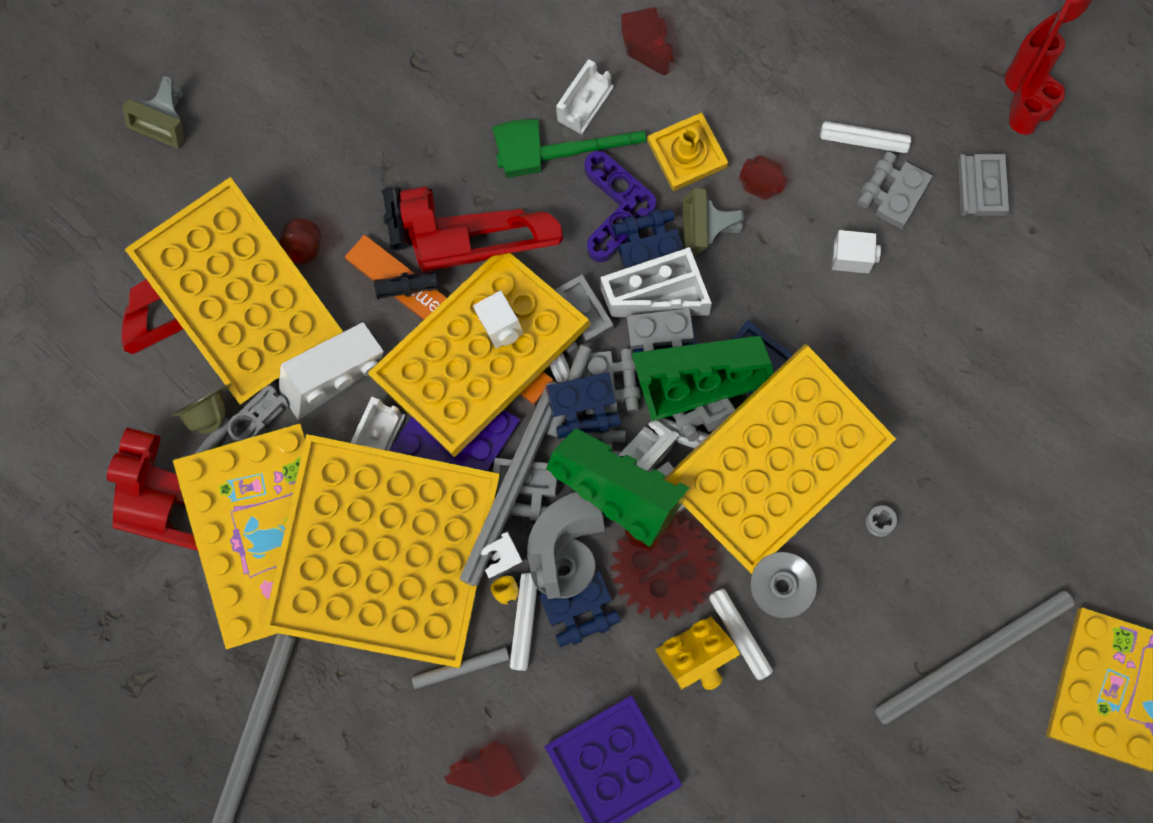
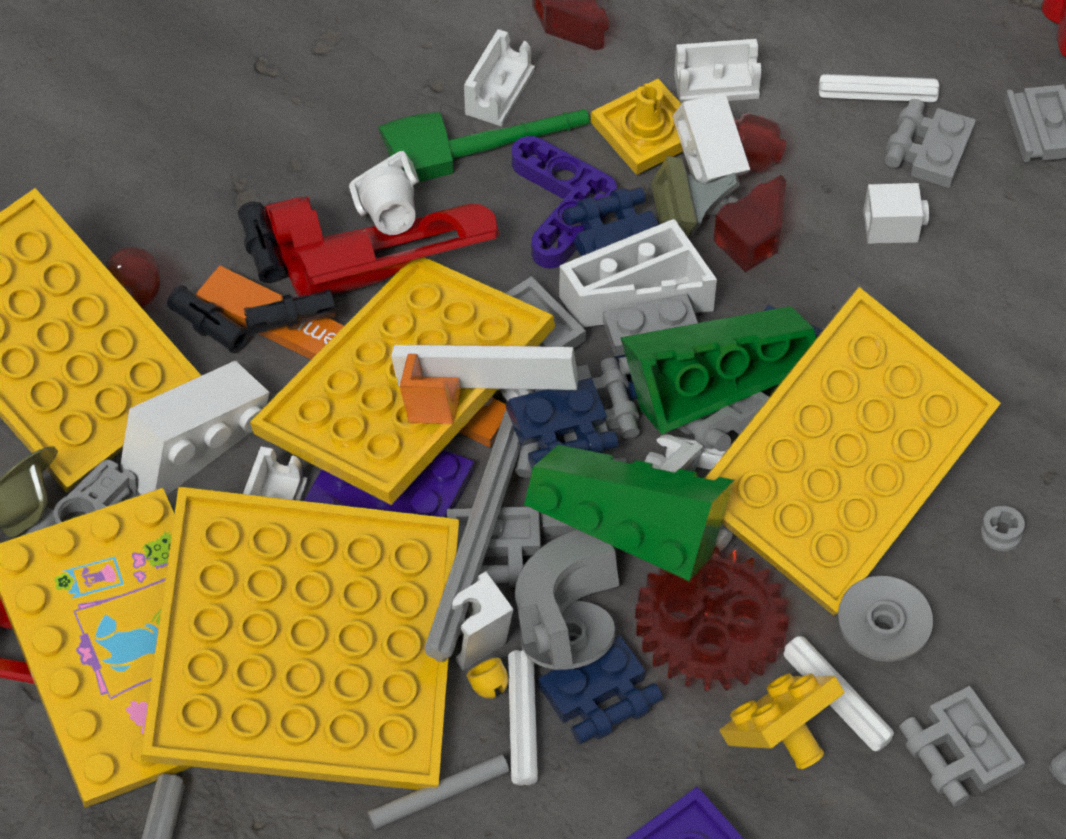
camera: 15 degrees left, 20 degrees down
(339, 267) = (207, 319): none -> black pin
(488, 191) = (387, 194): none -> white piece
(489, 378) = (428, 397): none -> orange panel
(498, 320) = (427, 320): white brick -> none
(532, 363) = (494, 365): none -> white tile
(730, 177) = (710, 138): none -> white hinge
(747, 110) = (716, 69): none -> white hinge
(749, 251) = (752, 225): none -> clear red slope
(826, 684) = (974, 739): none -> light grey plate

